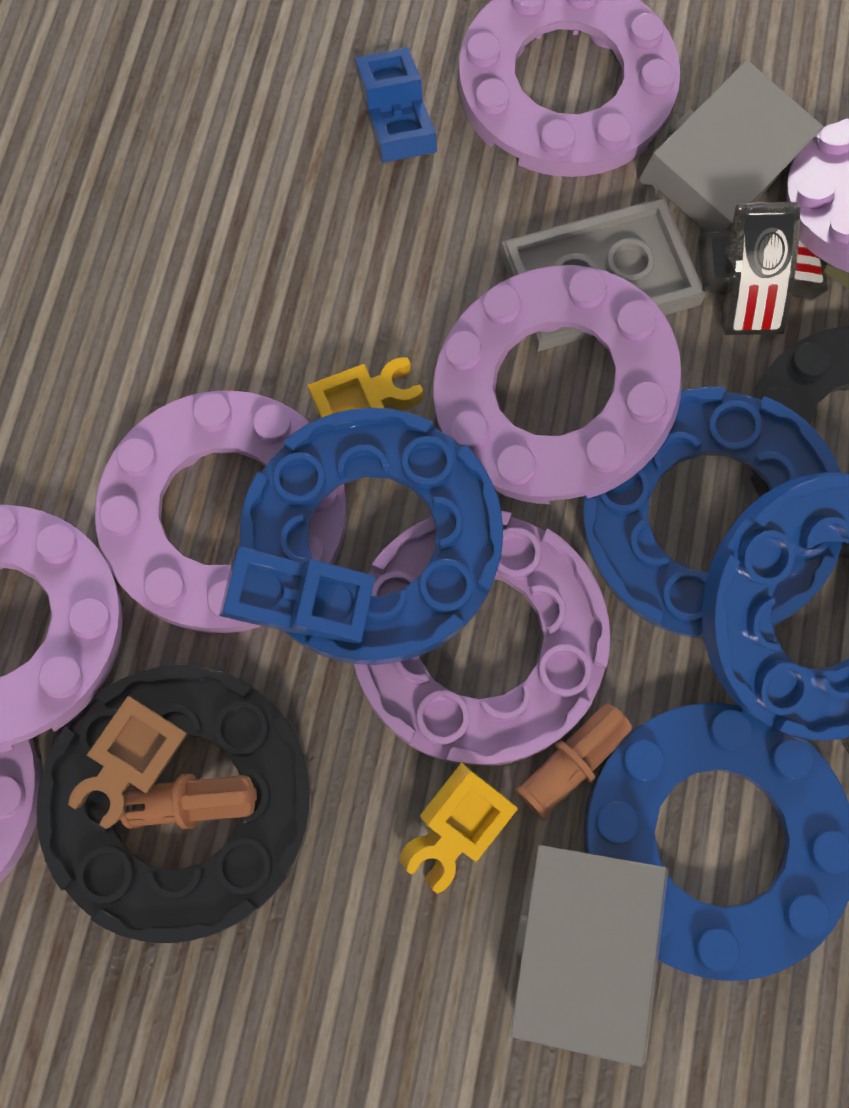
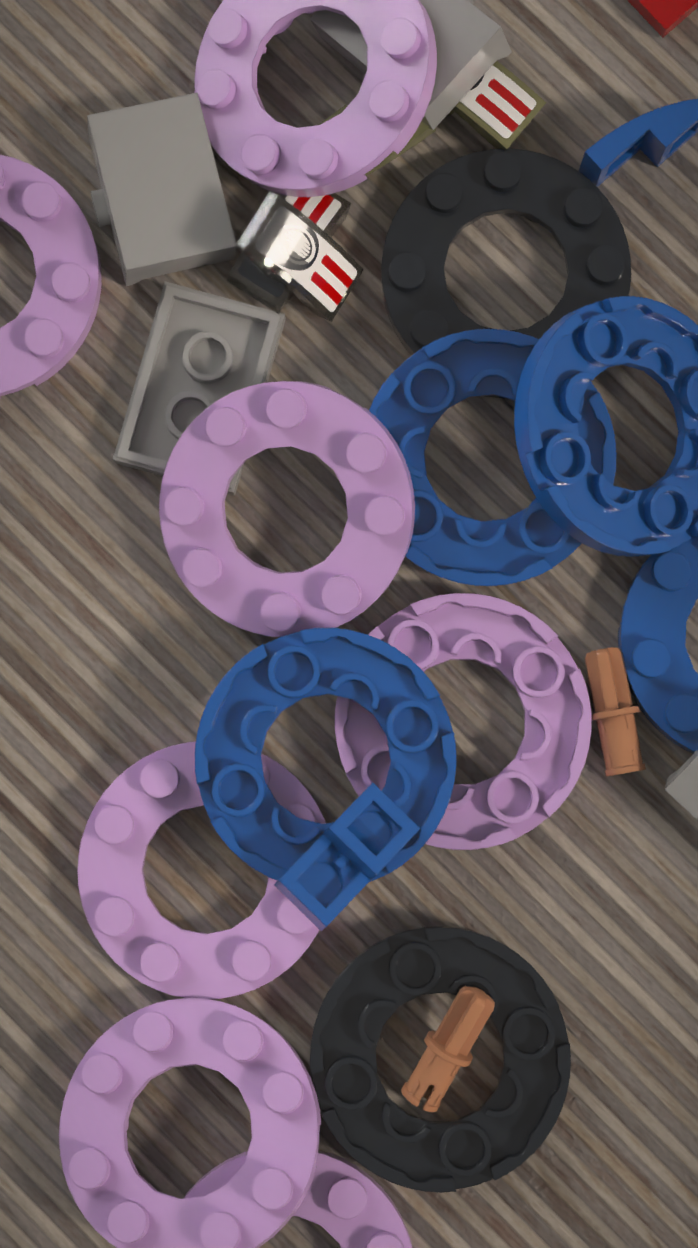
camera: 50 degrees left, 10 degrees up
(132, 751) = (384, 1069): medium nougat plate -> none
(358, 390) = (183, 689): yellow plate -> none
(463, 819) = (602, 837): yellow plate -> none

